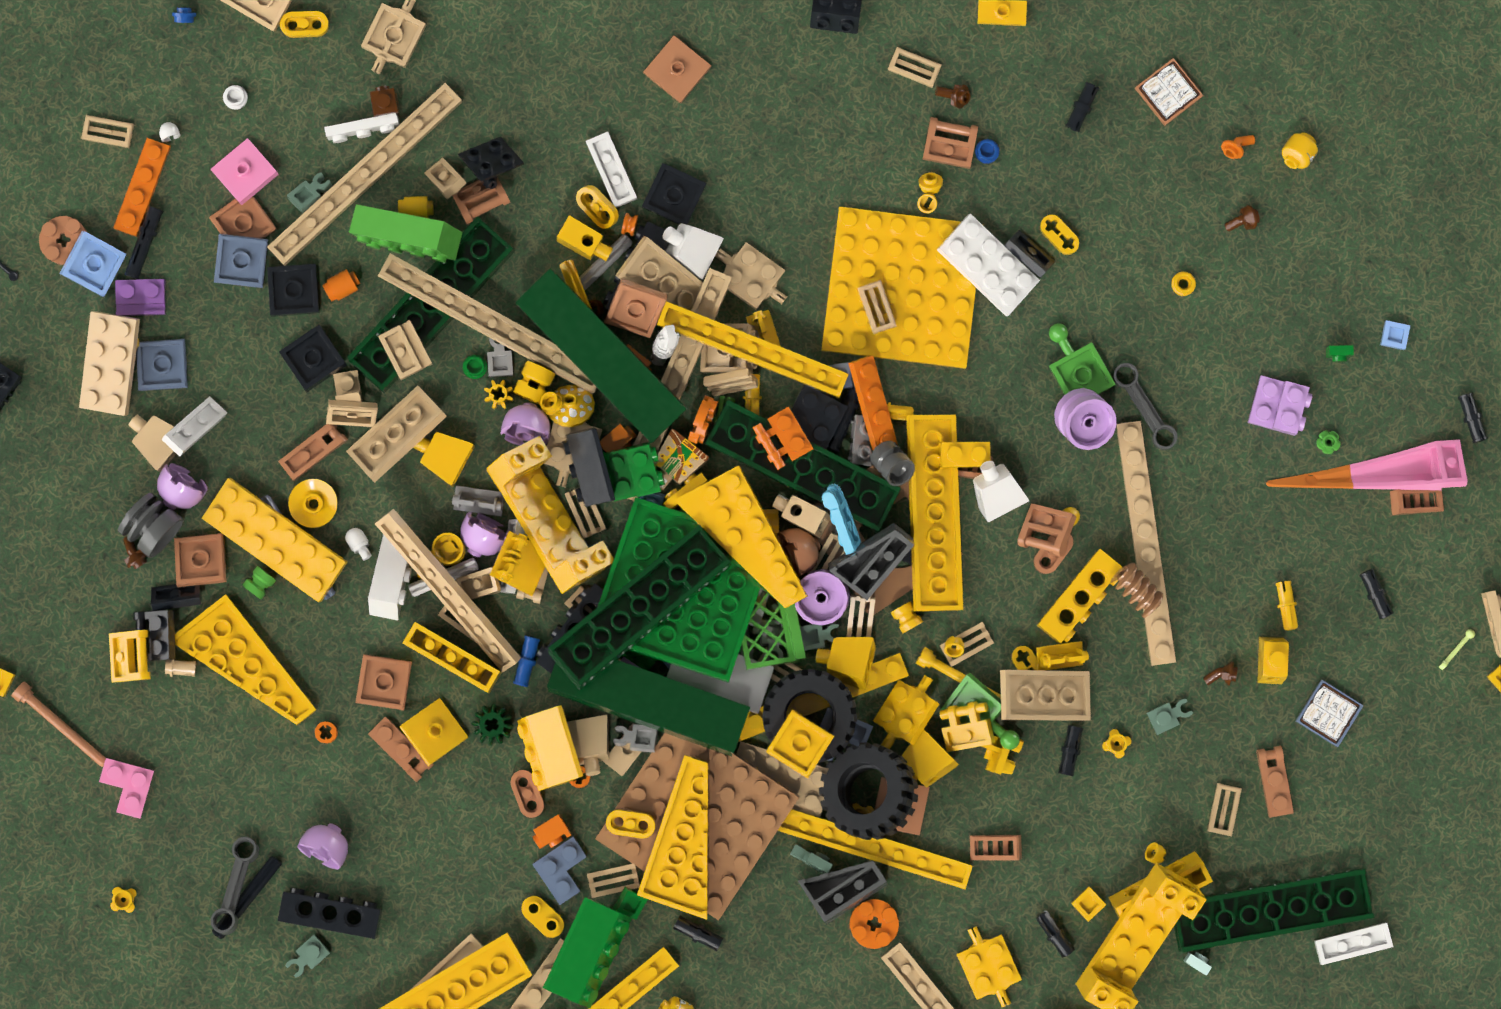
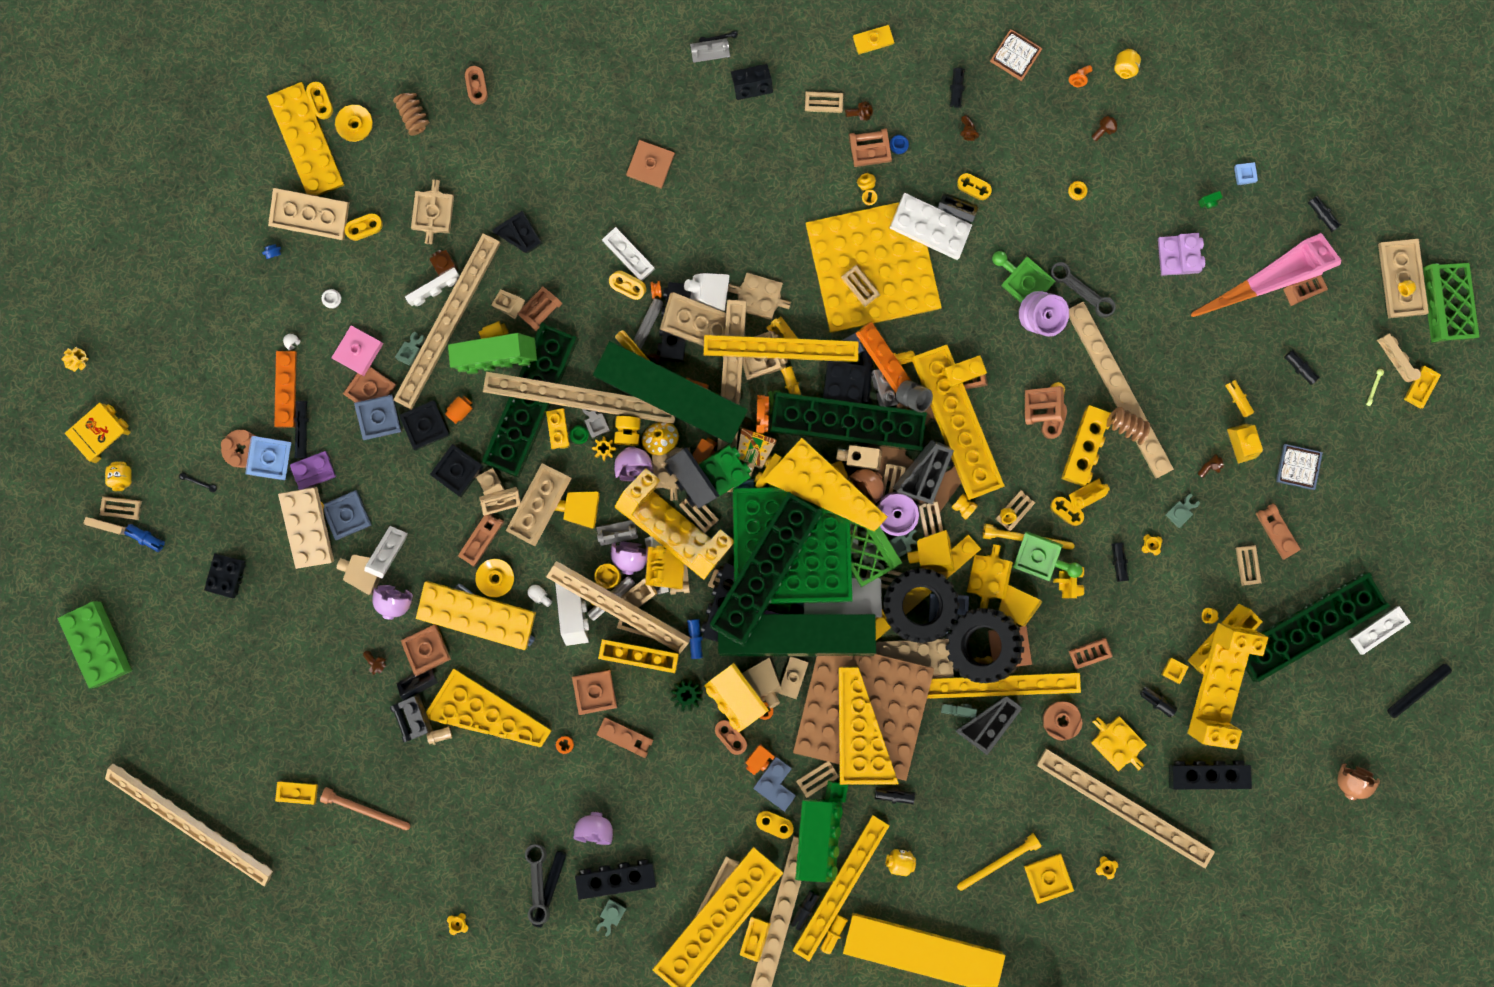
camera: 15 degrees left, 0 degrees up
(123, 656) = (393, 742): yellow plate -> none
(128, 136) = (245, 364): tan tile -> none
(134, 782) = (432, 831): bright pink plate -> none
(146, 522) = (377, 636): dark grey wheel -> none
(260, 581) = (475, 651): bright green wheel -> none
(405, 350) = (523, 440): tan plate -> none
(434, 732) = (645, 716): yellow plate -> none
(451, 351) = (557, 429): none -> yellow hinge
(489, 97) = (519, 233): none -> black wing
(490, 160) = (536, 278): black hinge -> none
(548, 399) = (642, 438): yellow plate -> none
(575, 232) = (617, 312): yellow torso -> none
(631, 823) = (817, 734): yellow plate -> none
(635, 308) = (683, 348): nougat plate -> none
(640, 738) = (800, 666): light grey plate -> none
(664, 345) = (714, 368): white hinge -> none
(674, 195) = (681, 256): black plate -> none
(730, 382) = (772, 378): tan tile -> none
(789, 434) = (831, 401): orange plate -> none
(800, 744) = (923, 629): yellow plate -> none
(842, 518) = (892, 449): medium azure hinge -> none
(886, 916) = (1013, 735): orange plate -> none
(931, 930) = (1073, 719): none -> nougat plate
(969, 734) = (1042, 577): yellow plate -> none
(997, 491) = (998, 389): white torso -> none
(1045, 695) = (1088, 527): tan plate -> none
(1077, 166) = (969, 132): none -> reddish brown plate
(1198, 962) = (1272, 685): light aqua plate -> none
(1322, 442) = (1225, 273): bright green plate -> none

